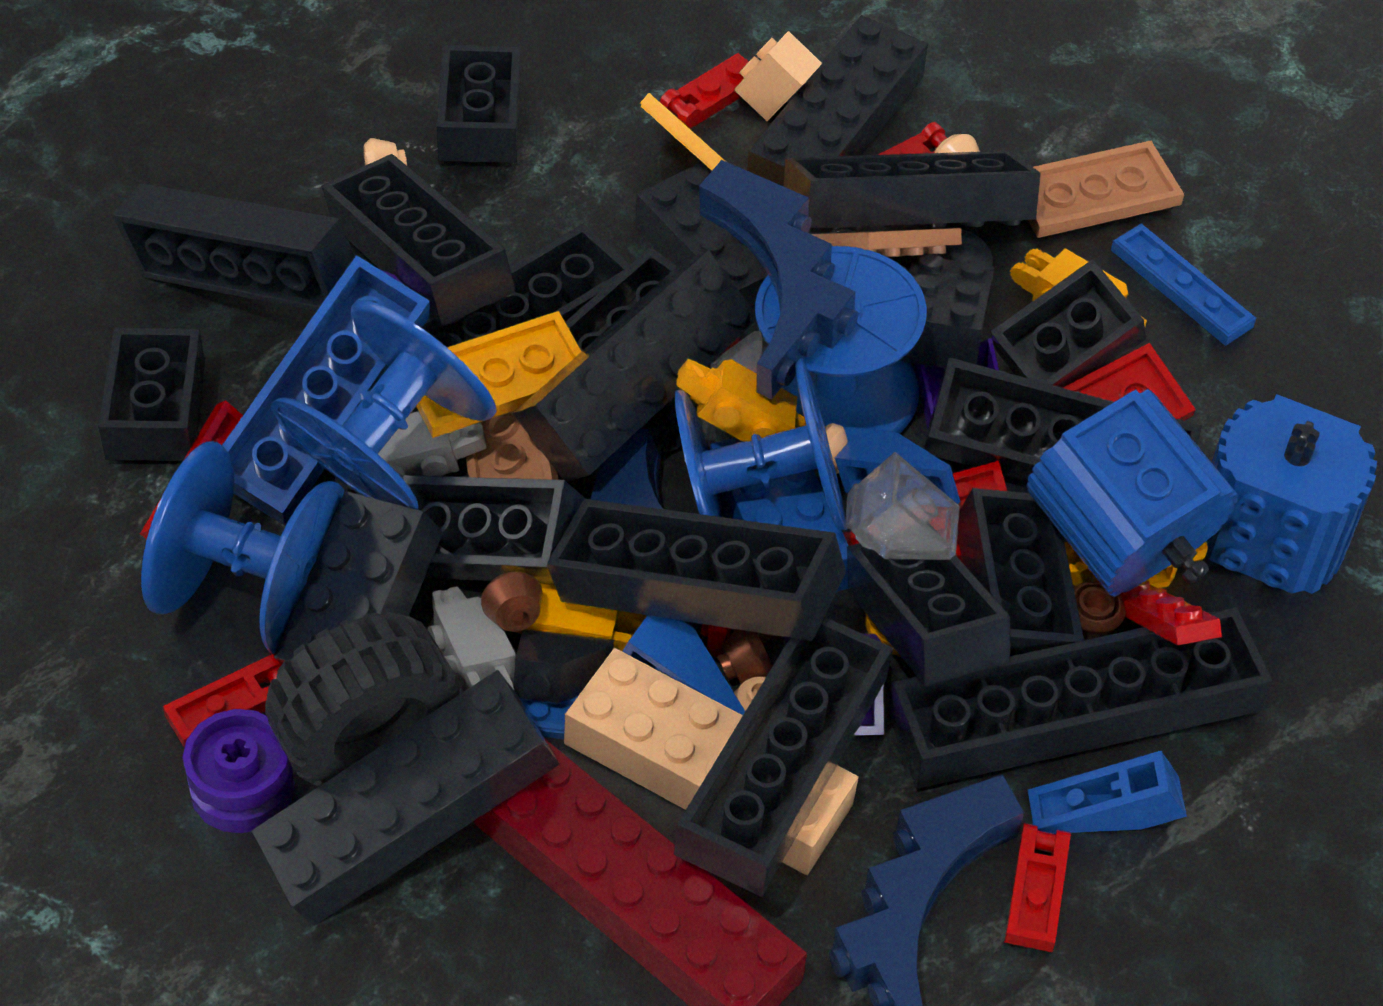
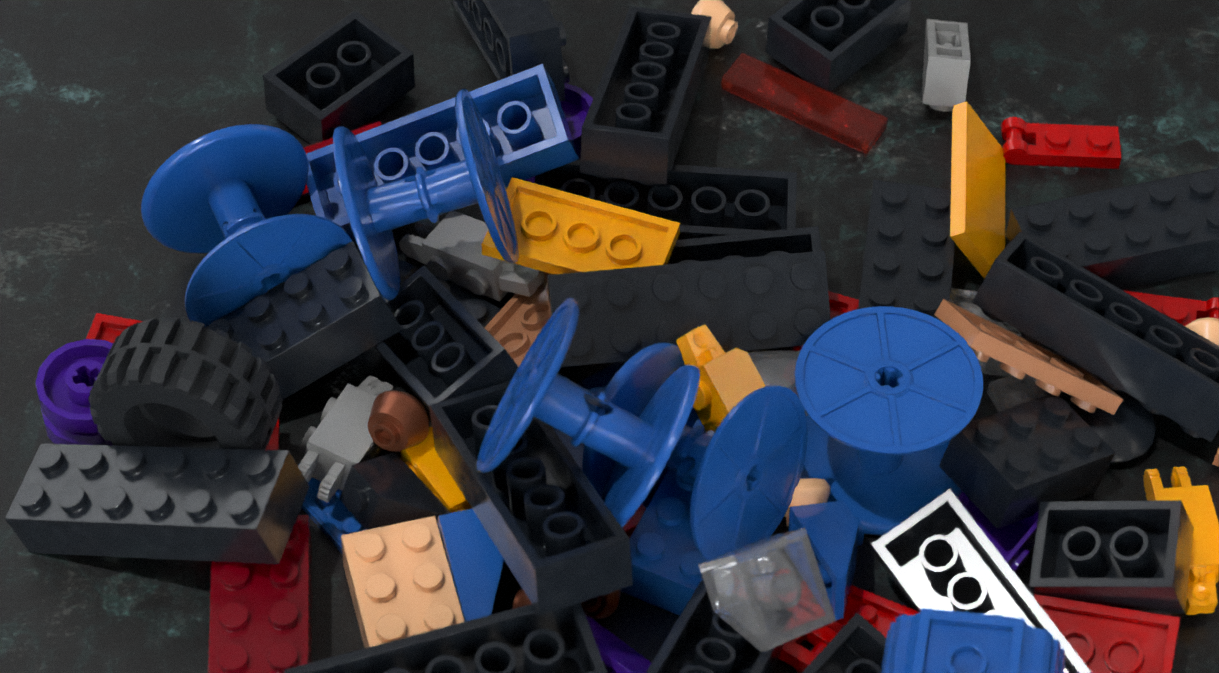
camera: 45 degrees right, 0 degrees up
(510, 178) = (804, 103): none -> clear red tile
(580, 83) = (945, 64): none -> light grey slope
(668, 477) = (636, 444): none -> blue piece
(776, 230) = (851, 349): dark blue arch -> none
(777, 76) = (1113, 159): light nougat brick -> none

